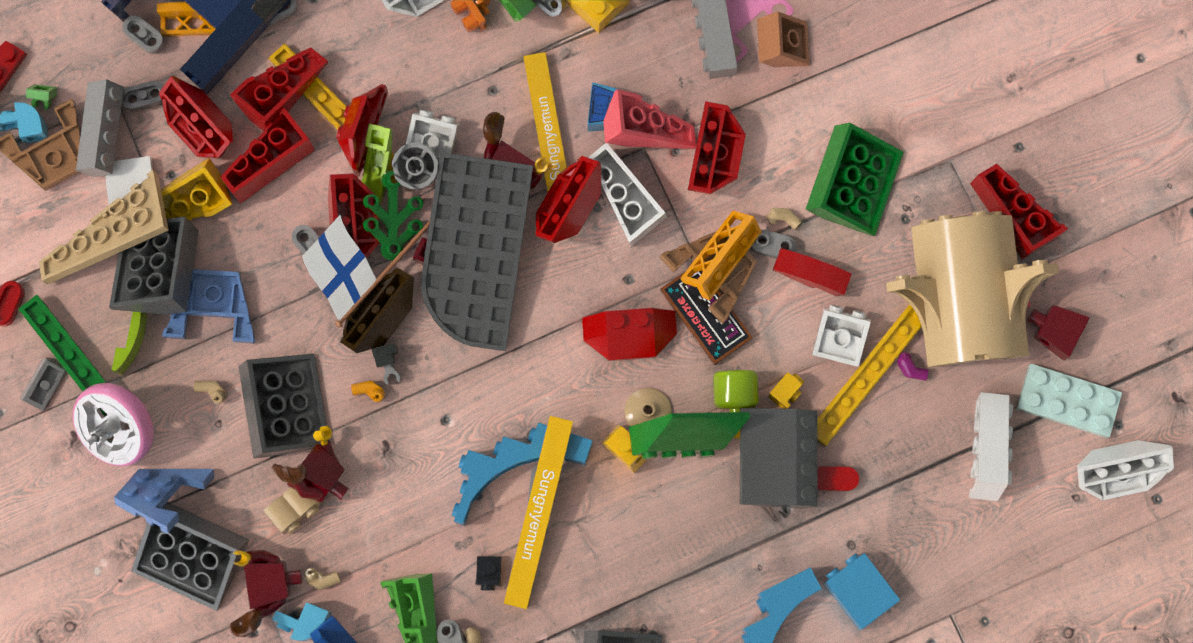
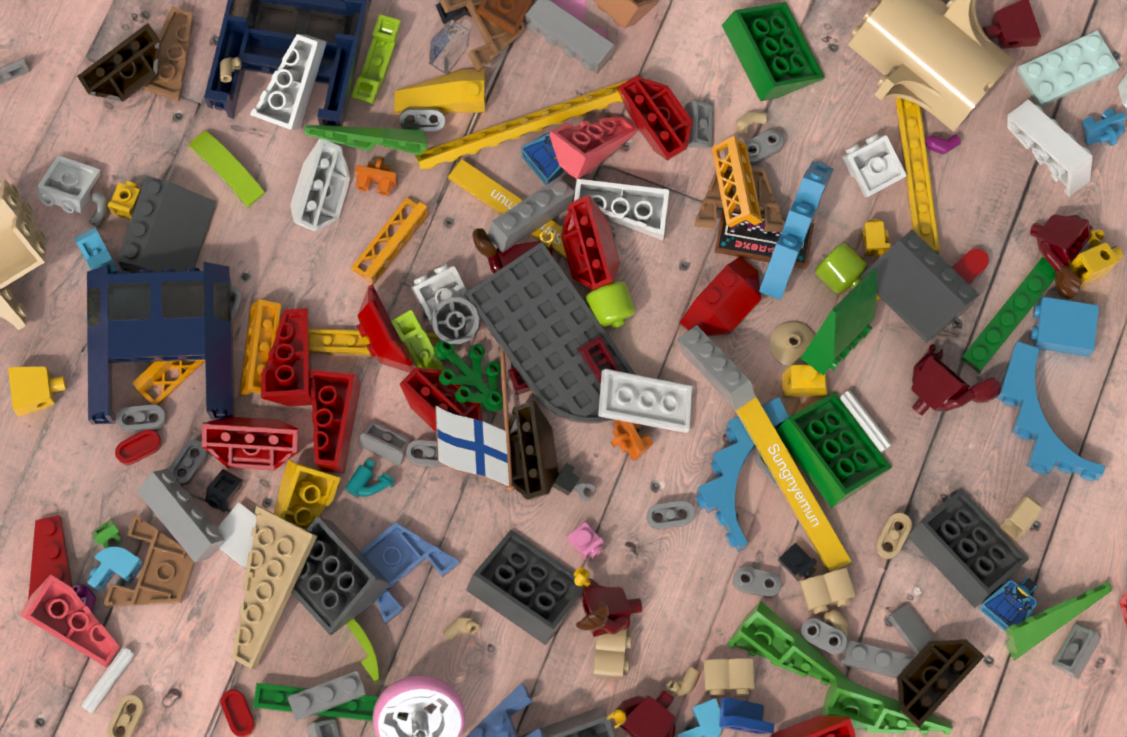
camera: 45 degrees left, 5 degrees down
(71, 349) = (326, 695): none -> light grey plate
(123, 53) = (138, 447): none -> red tile
(147, 136) = (222, 490): none -> black bracket
(246, 218) = (360, 478): none -> teal plant
(285, 46) = (260, 337): none -> light orange fence
(290, 207) = (384, 442): none -> light grey slope
(356, 412) = (586, 541): none -> bright pink bracket
(356, 605) = (728, 676): none -> tan brick
(370, 388) = (579, 514): light orange arm -> none
(433, 451) = (669, 512): none -> light grey plate
(437, 70) = (394, 243): none -> light orange fence
(445, 557) = (756, 585): none -> light grey plate
(464, 358) = (629, 440): none -> orange hips
(488, 613) = (827, 590): none -> tan brick
(495, 351) = (645, 400): none -> white tile
(498, 294) = (602, 349): none -> dark red slope
(541, 258) = (611, 304): none -> lime head
(548, 138) = (530, 214): none -> light grey brick
(566, 376) = (716, 367): none -> light grey brick
(575, 619) = (893, 536): none -> tan plate
(596, 515) = (832, 449): none -> green slope
(609, 65) = (517, 127): none -> yellow plate
(641, 519) = (865, 421): none -> white axle
(719, 548) = (943, 388): none -> dark red torso
(731, 326) = (795, 229): none -> dark azure arch
(749, 181) = (702, 118): none -> light grey slope
(812, 272) = (810, 139): red slope -> none
(834, 543) = (1009, 316): none -> green plate
(920, 526) = (1060, 243): none -> dark red torso
(930, 566) = (1095, 263): none -> yellow torso
(1048, 474) = (1105, 130): none -> dark azure hips

